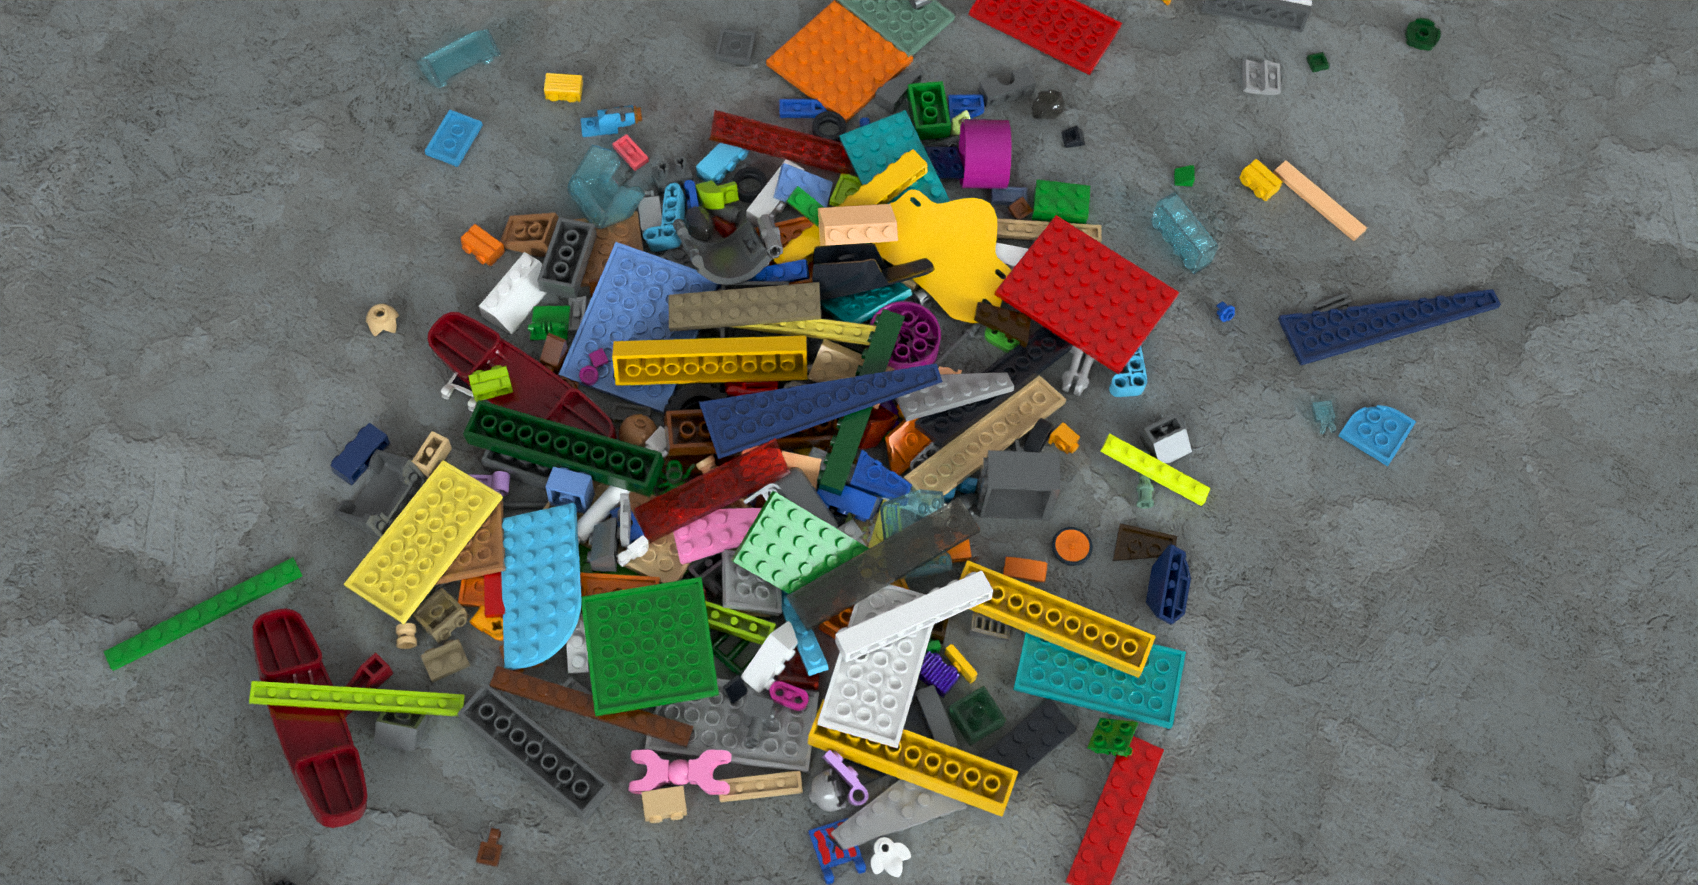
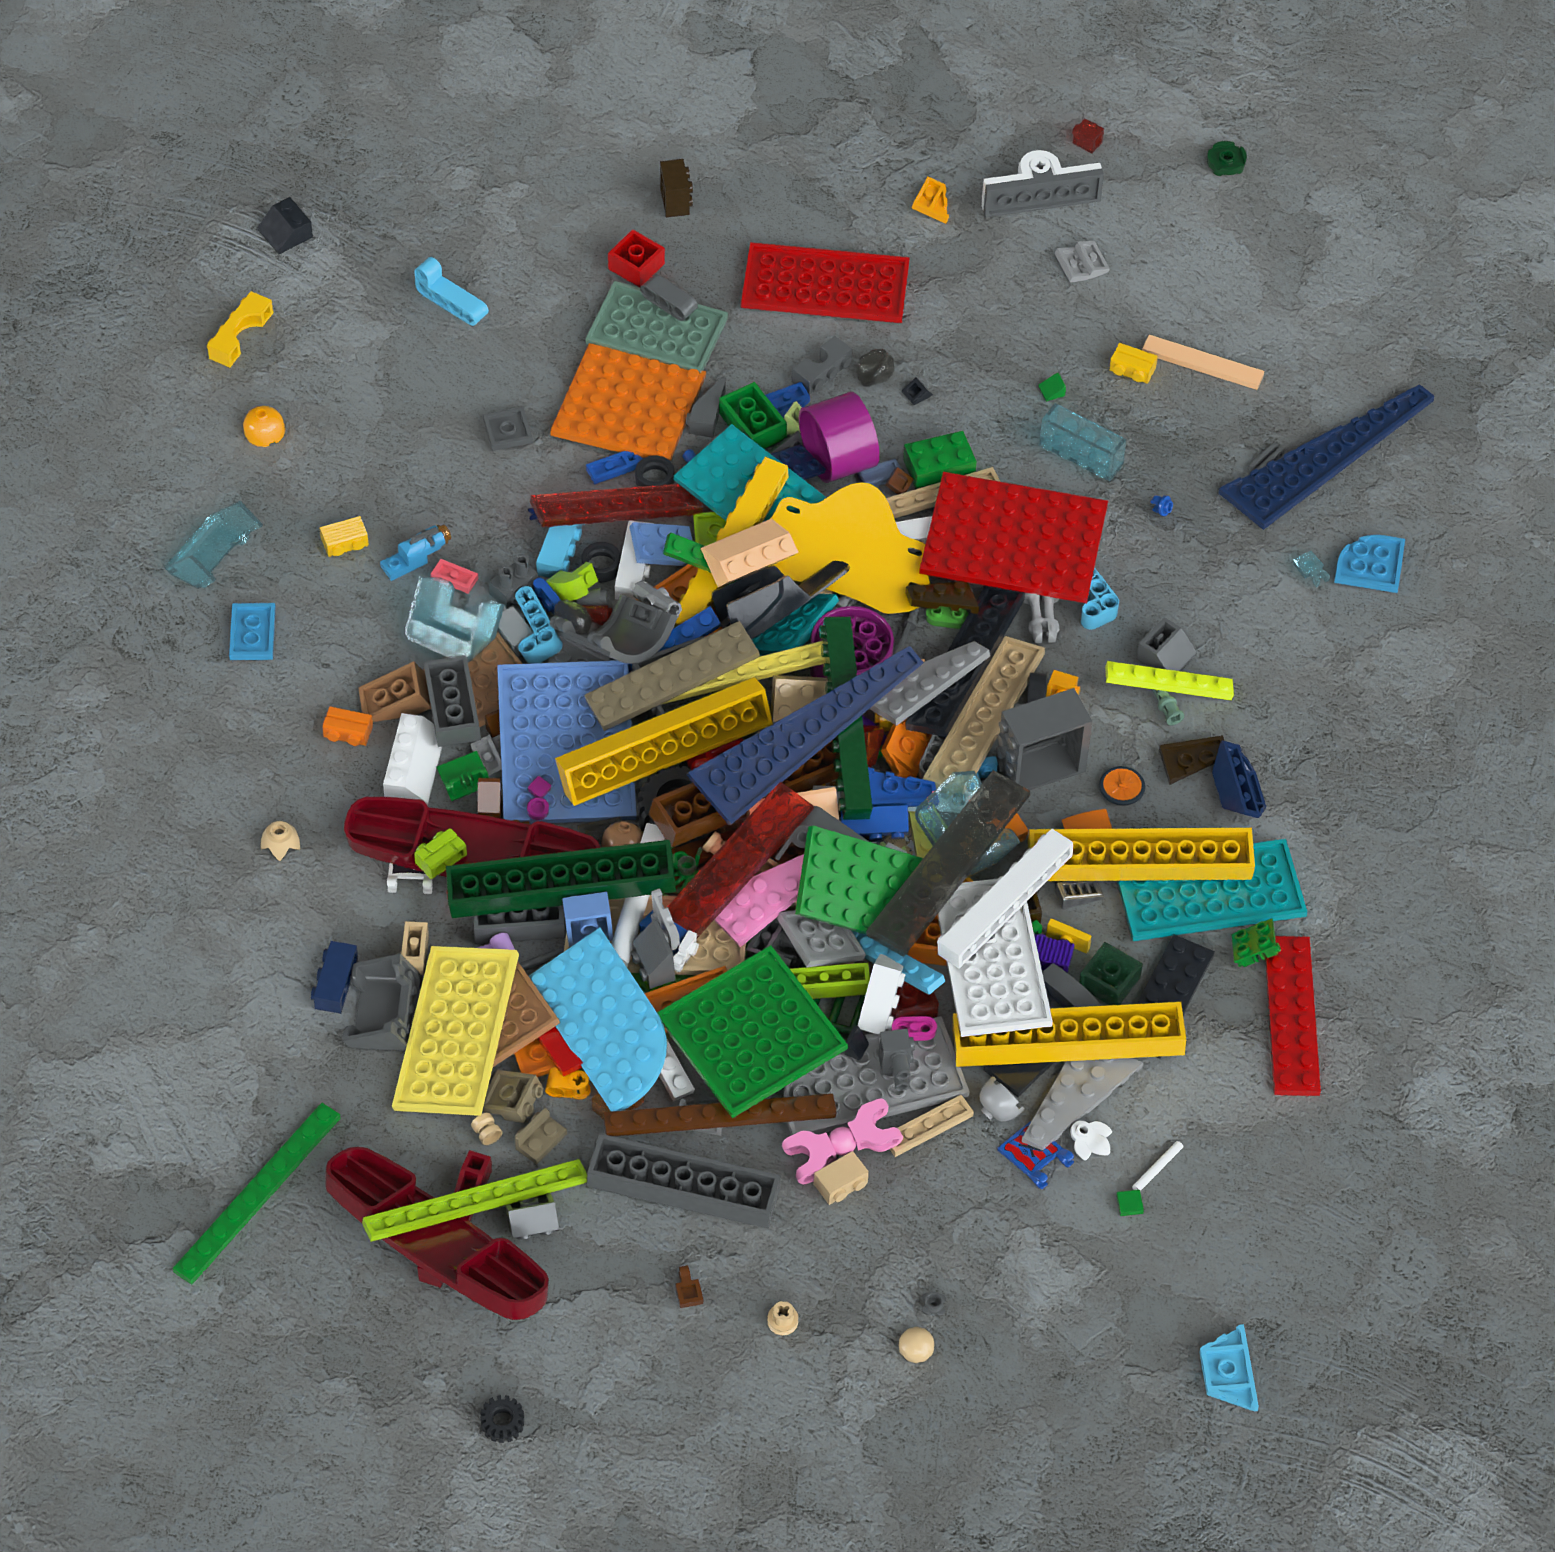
camera: 20 degrees left, 10 degrees down
(848, 774) = (1013, 1078): lavender plate -> none
(1317, 62) = (1132, 225): dark green tile -> none

